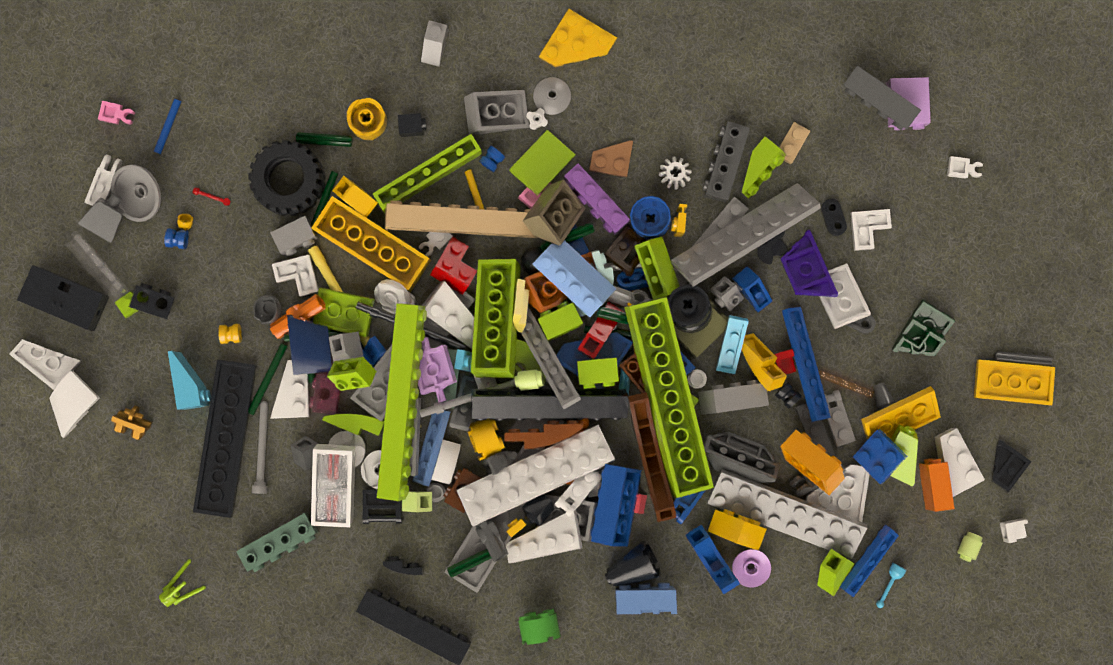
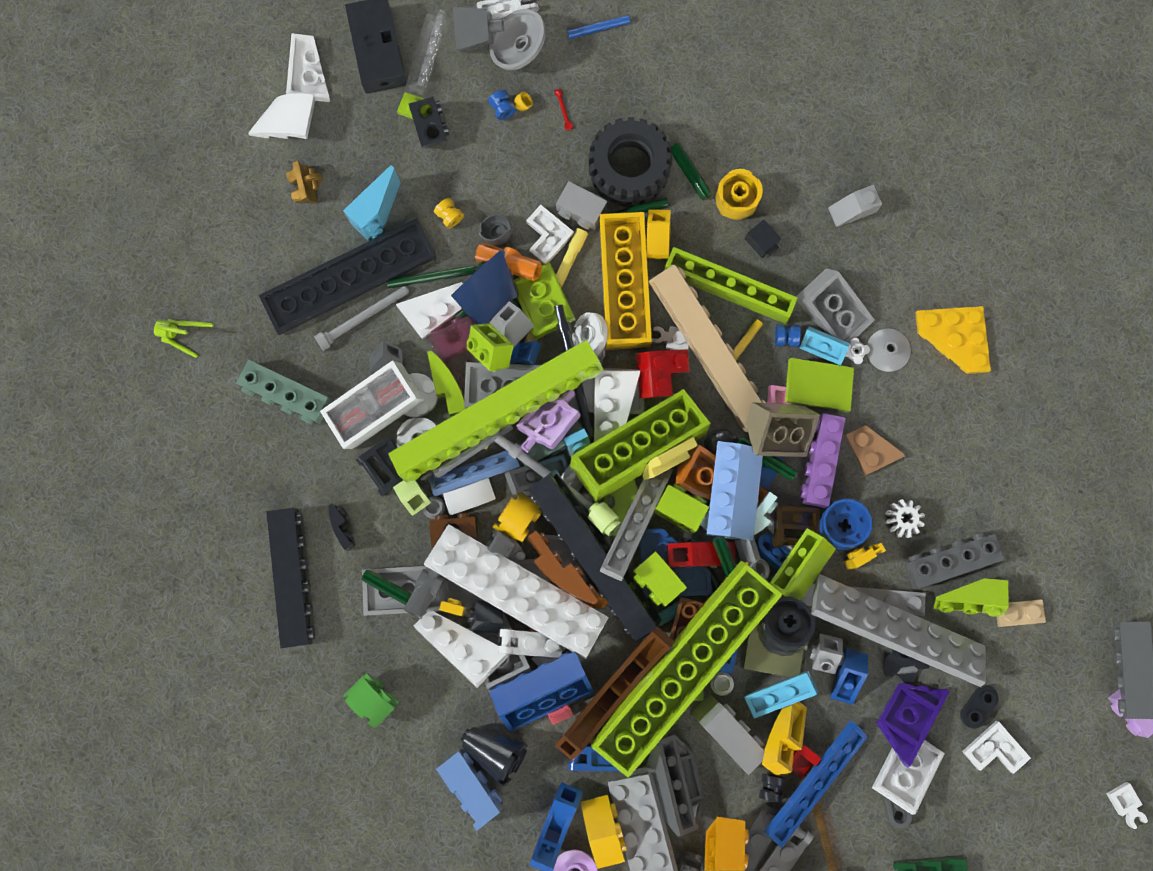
camera: 60 degrees right, 5 degrees down
(517, 138) = (824, 345): none -> medium azure plate

